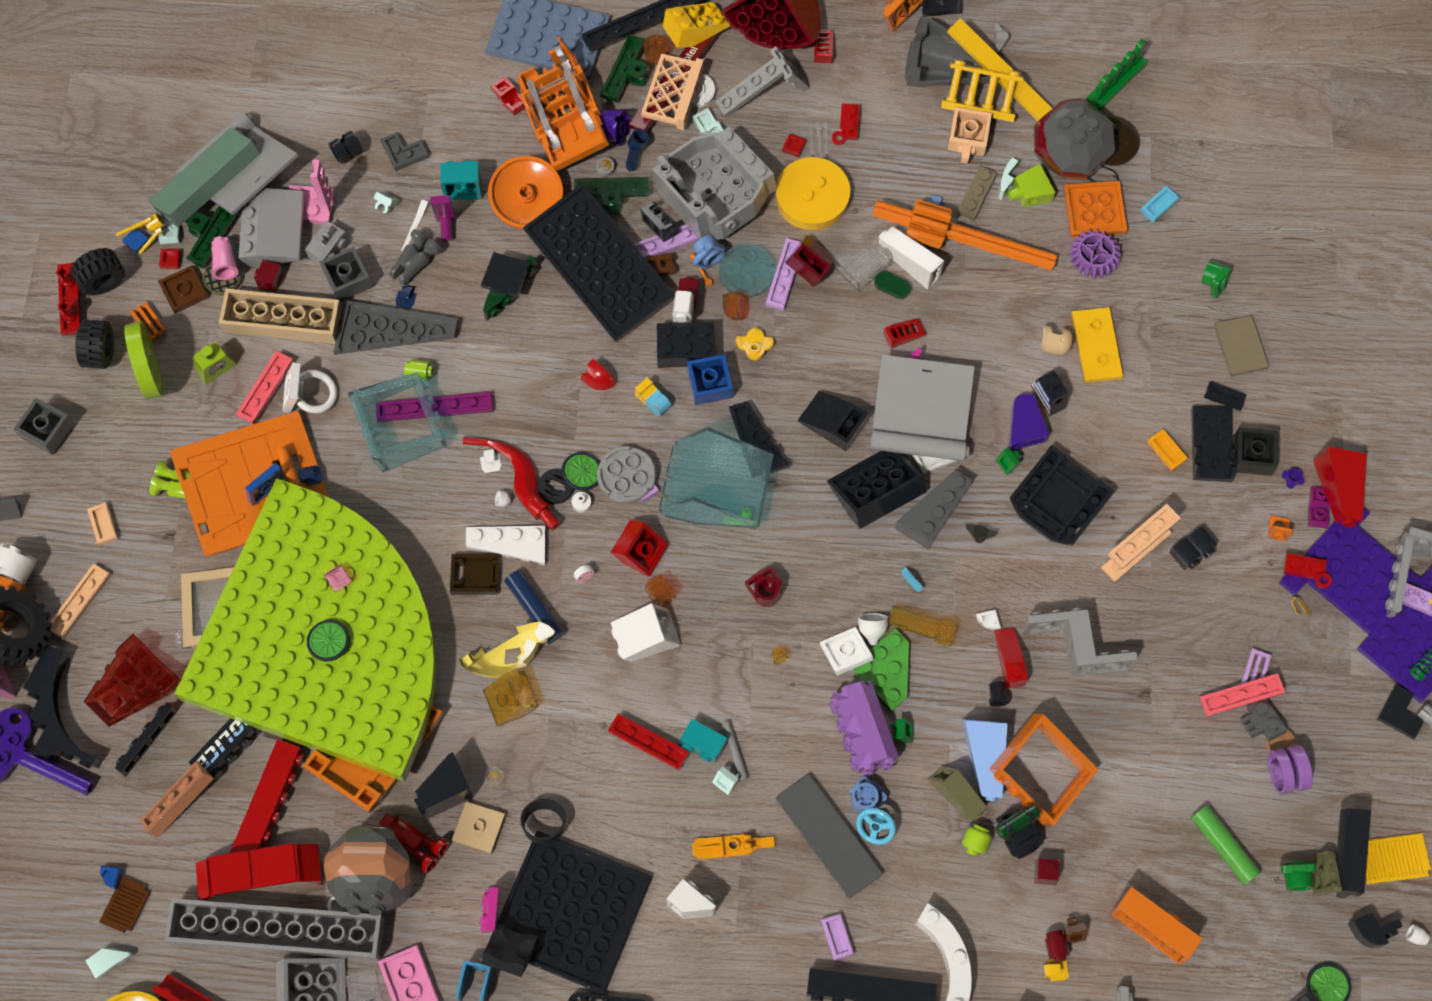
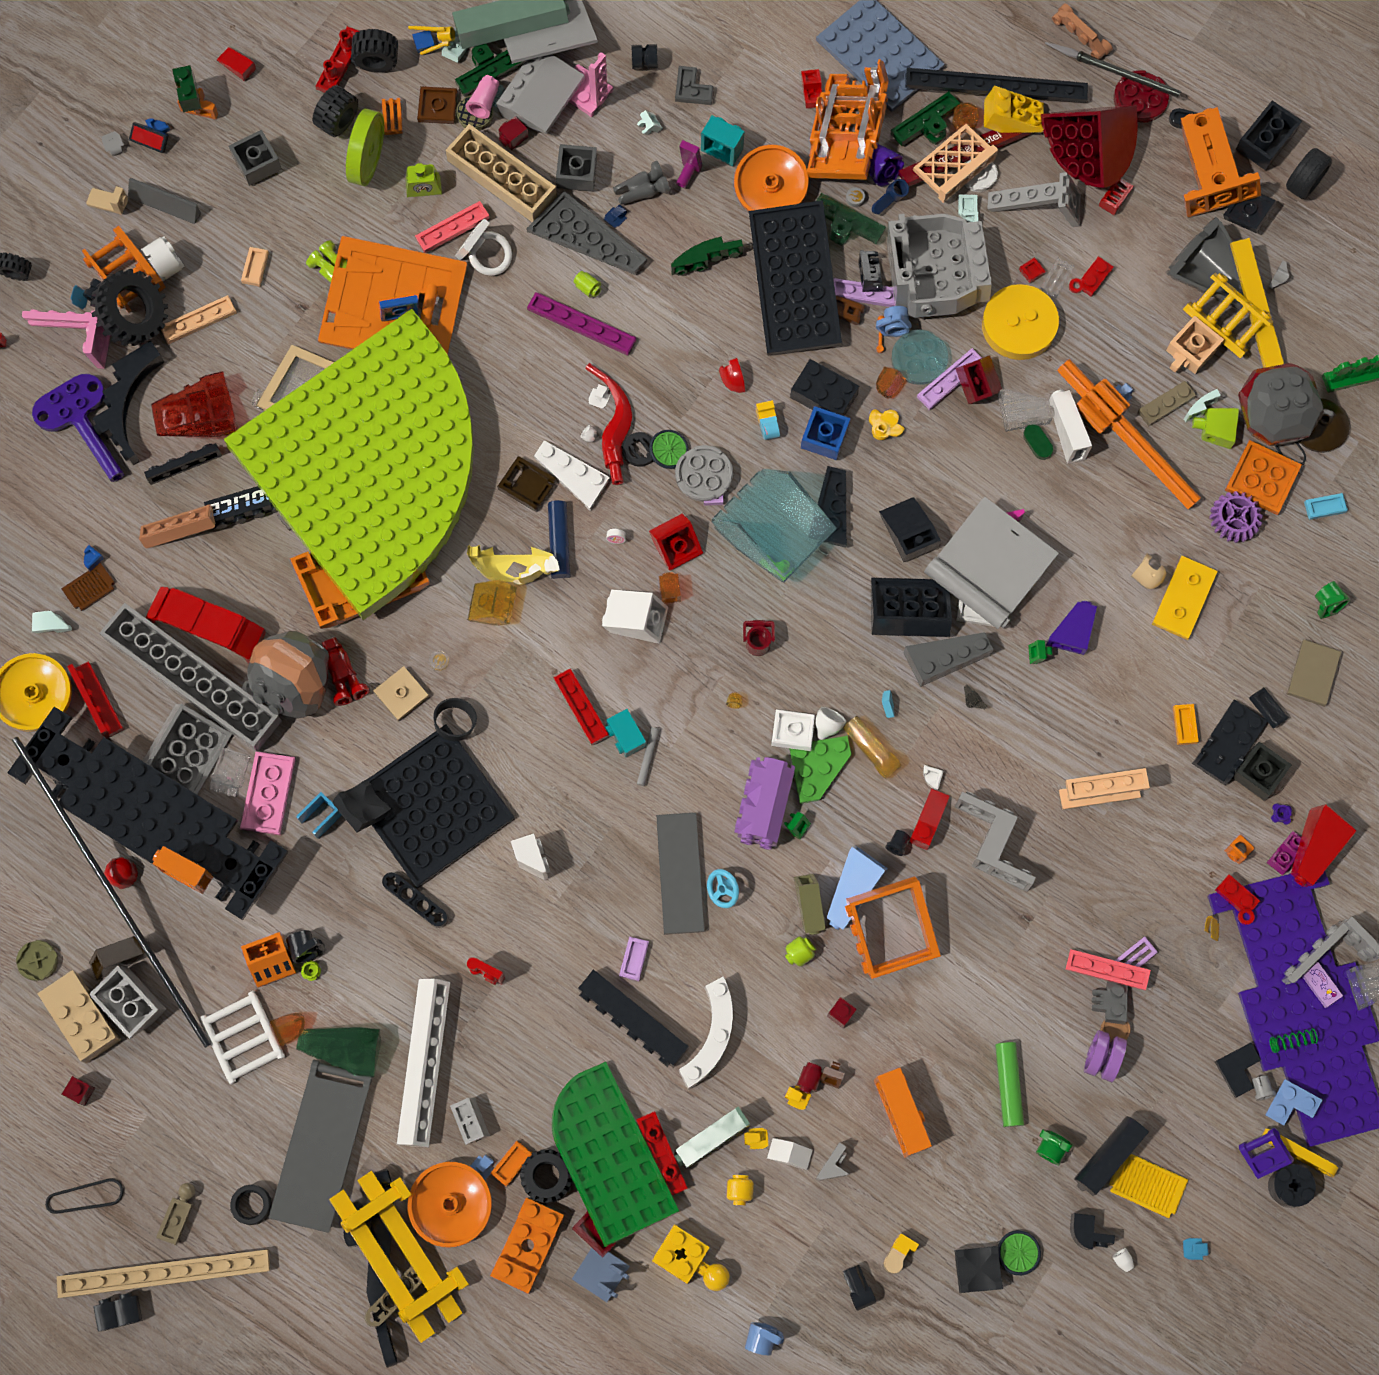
camera: 30 degrees right, 5 degrees up
(170, 259) = (442, 72): red tile -> none
(268, 797) = (249, 568): red brick -> none
(311, 475) = (444, 323): dark blue piece -> none
(326, 242) = (578, 131): light grey brick -> none
(328, 640) = (369, 467): bright green wheel -> none
(337, 578) = (409, 420): clear pink tile -> none
(403, 453) = (530, 348): clear light blue windscreen -> none
(420, 212) = (673, 149): white sticker -> none
(443, 788) = (391, 644): black slope -> none
(489, 904) = (370, 758): dark pink plate -> none
(505, 274) = (708, 243): black tile -> none
(581, 502) = (652, 475): white tile -> none
(683, 307) = (841, 358): white brick -> none
(690, 285) = (855, 347): dark red brick -> none
(719, 846) = (585, 828): light orange piece -> none
(725, 779) = (624, 776): light aqua tile -> none
(866, 795) = (730, 859): medium blue piece -> none
(894, 342) = (1013, 494): red slope -> none
(1020, 831) = (840, 966): black piece -> none
(1048, 391) = (1113, 612): black torso -> none
(1059, 498) = (1061, 709): black wedge -> none
(1193, 548) = (1150, 822): black brick -> none
(1326, 874) = (1078, 1161): olive wing -> none

